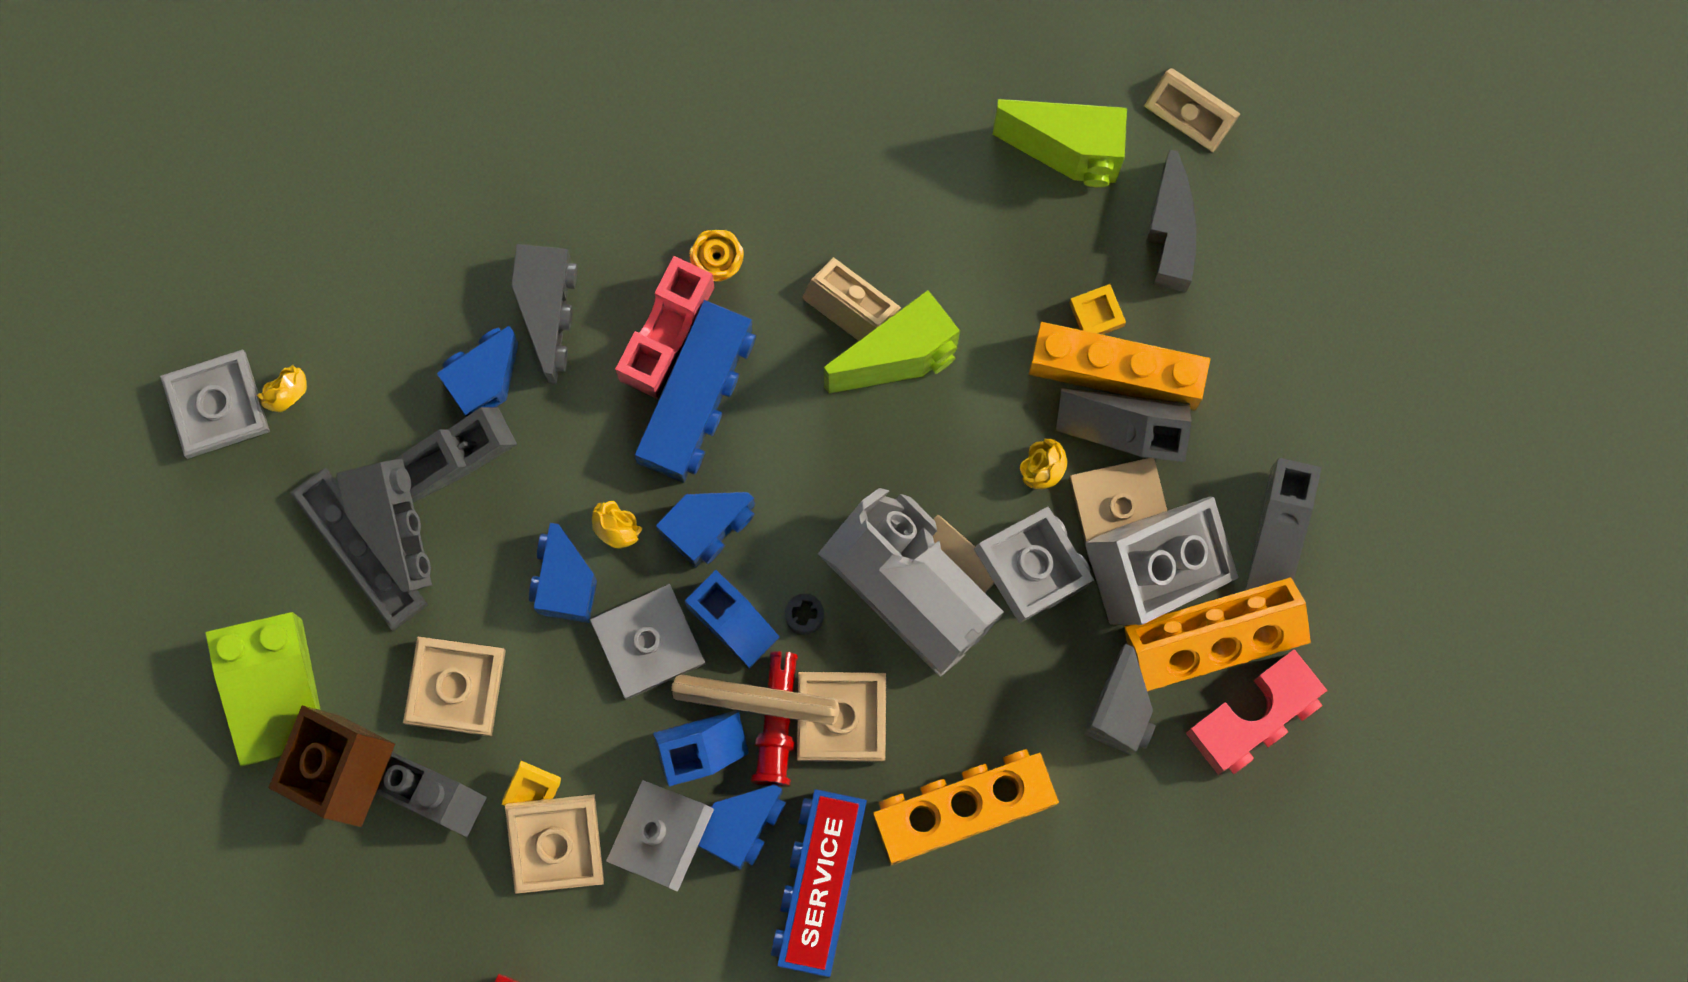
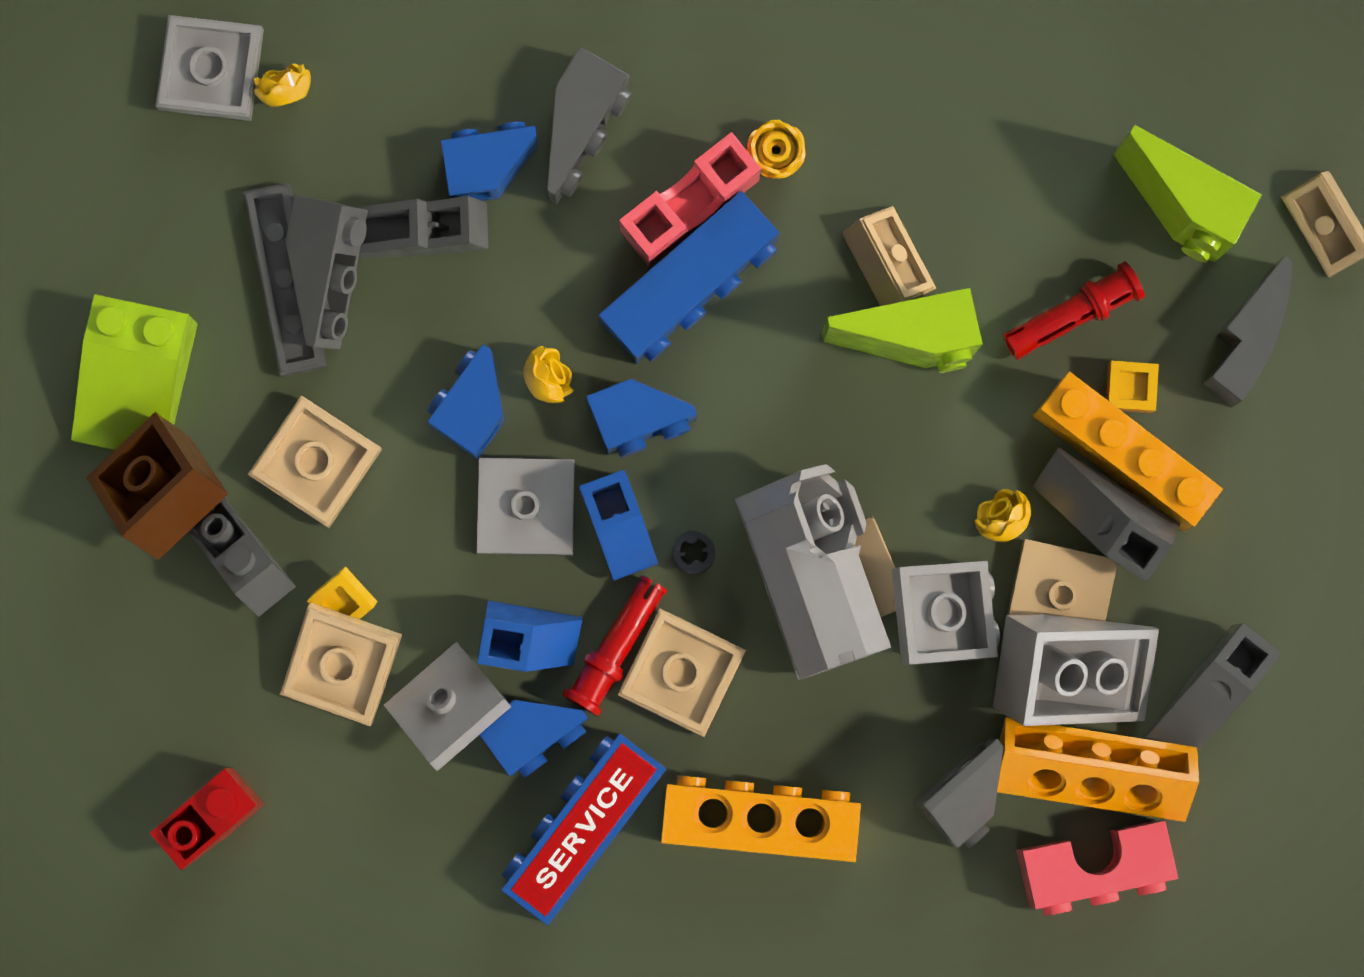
camera: 20 degrees right, 5 degrees up
(755, 699) = (604, 616): tan axle -> none
(1032, 259) = (1091, 303): none -> red pin

